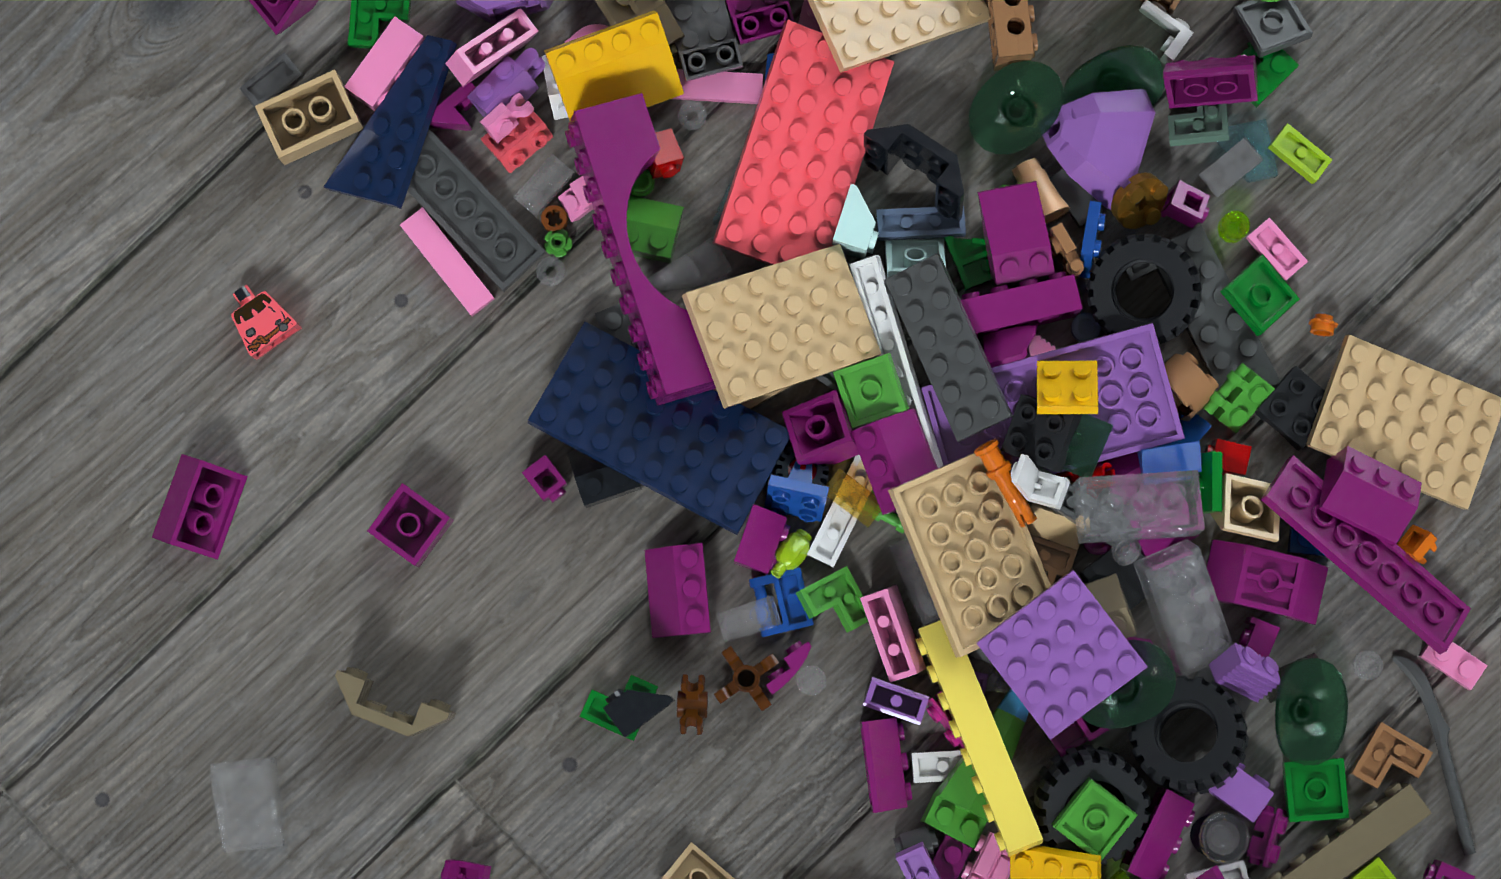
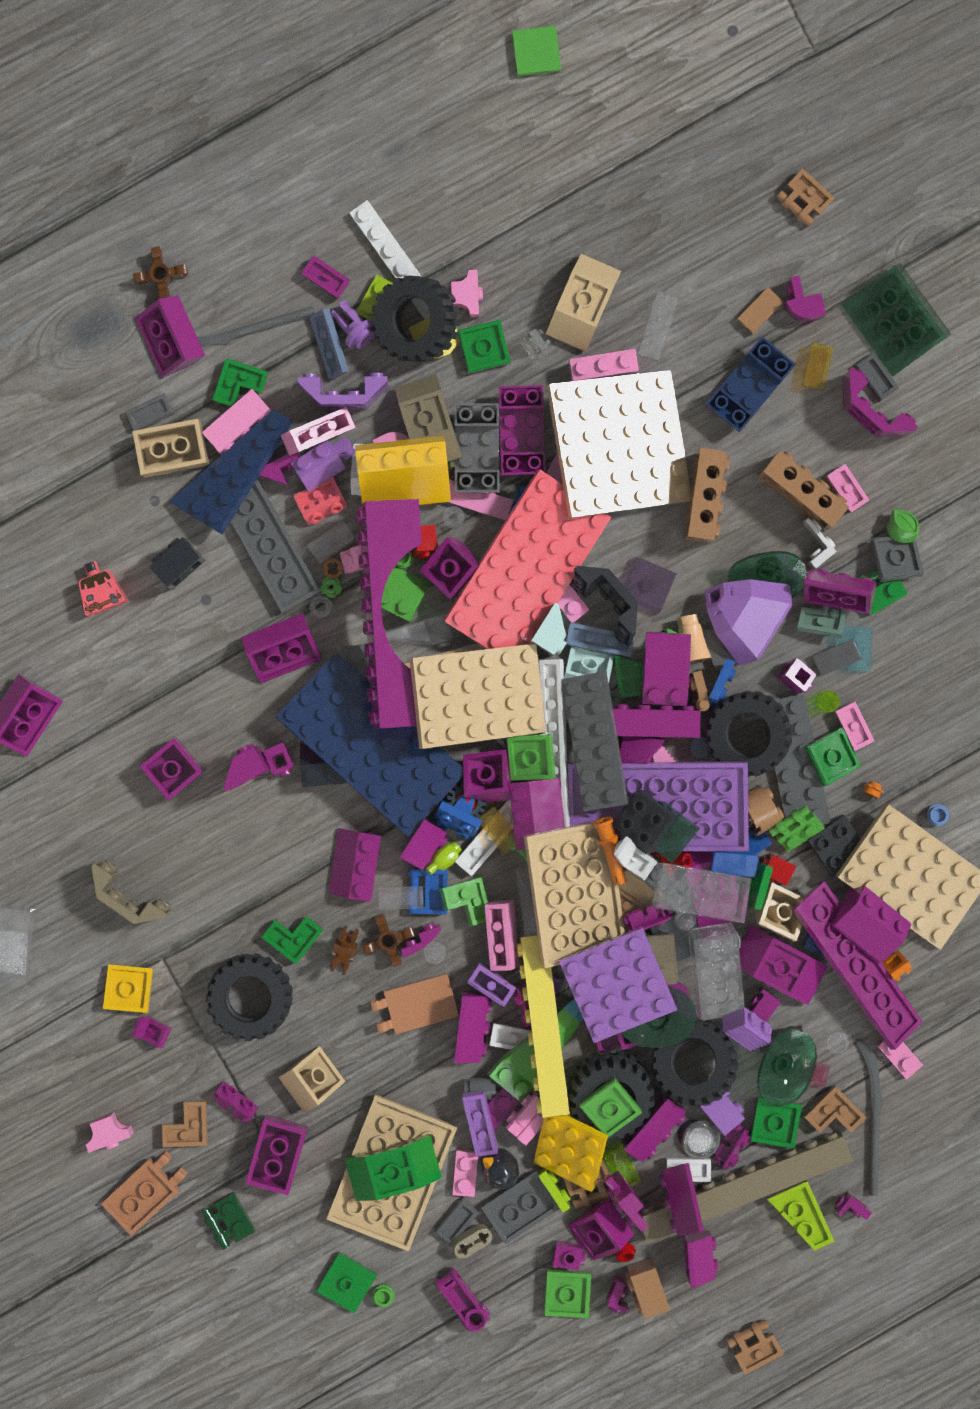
camera: 10 degrees right, 5 degrees up
(352, 259) = (176, 563): none -> black brick
(421, 829) = (128, 988): none -> yellow plate
(447, 261) = (246, 580): bright pink tile -> none
(503, 118) = (313, 487): bright pink plate -> none
(505, 497) = (246, 766): none -> magenta slope
(513, 336) = (281, 648): none -> magenta slope
(542, 800) = (236, 1024): none -> black tyre
(634, 708) = (302, 944): black slope -> none
(704, 175) = (450, 566): none -> magenta slope
(806, 754) = (417, 1004): none -> nougat tile
(873, 187) = (572, 605): none -> bright pink plate
(954, 133) = (649, 584): none -> clear purple plate
(1016, 107) = (691, 574): clear green hat -> none
(1067, 387) = (672, 794): yellow plate -> none
(1085, 557) = (652, 918): none -> magenta hinge
(1150, 194) = (763, 666): pearl gold plate -> none
(1299, 153) = (890, 659): lime plate -> none
(1357, 713) = (820, 1074): none -> clear pink tile
(1415, 336) = (937, 815): none -> medium blue plate

